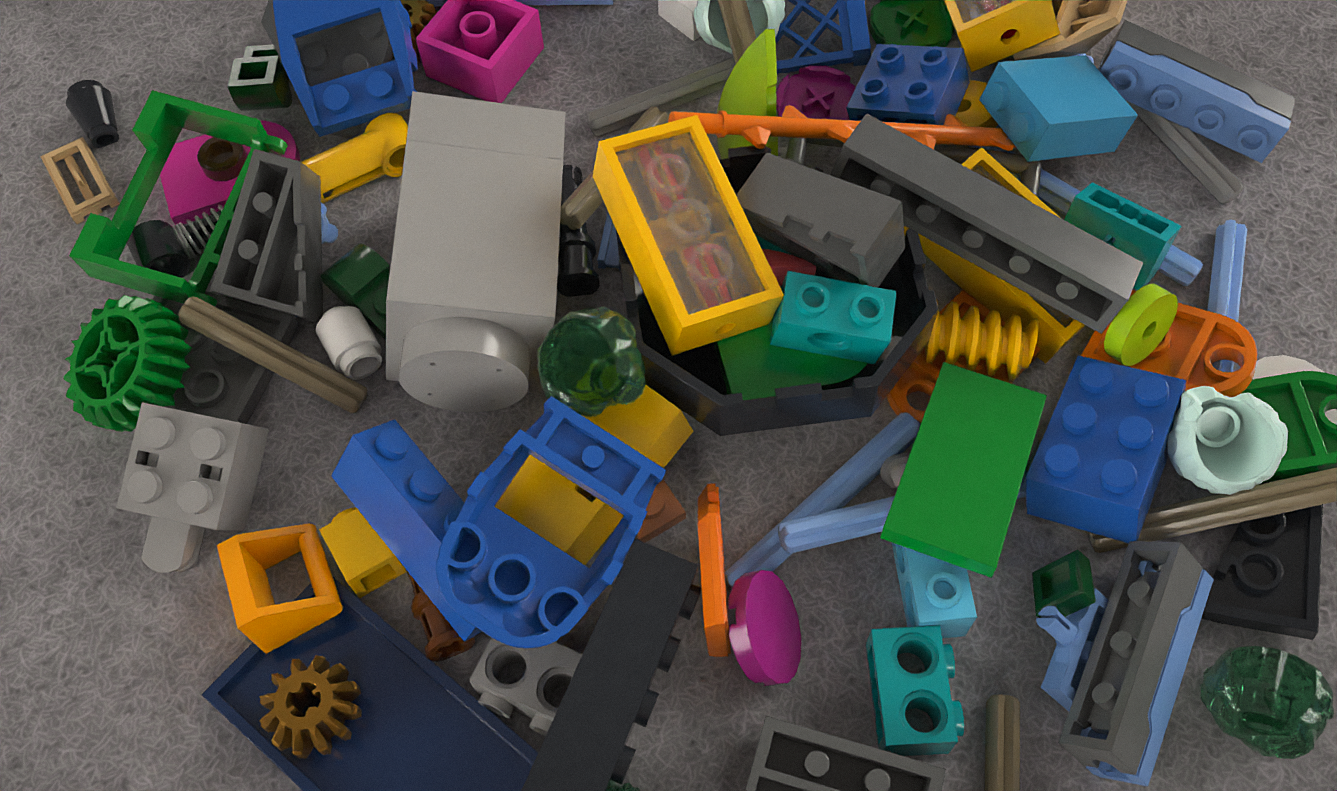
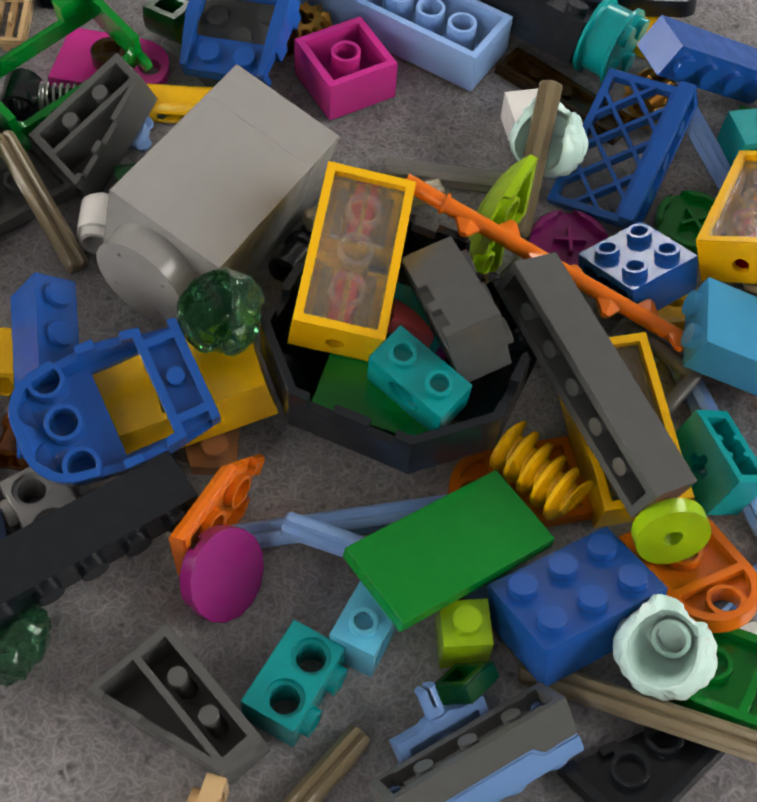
camera: 25 degrees right, 5 degrees down
(1031, 539) = (463, 632): none -> lime brick

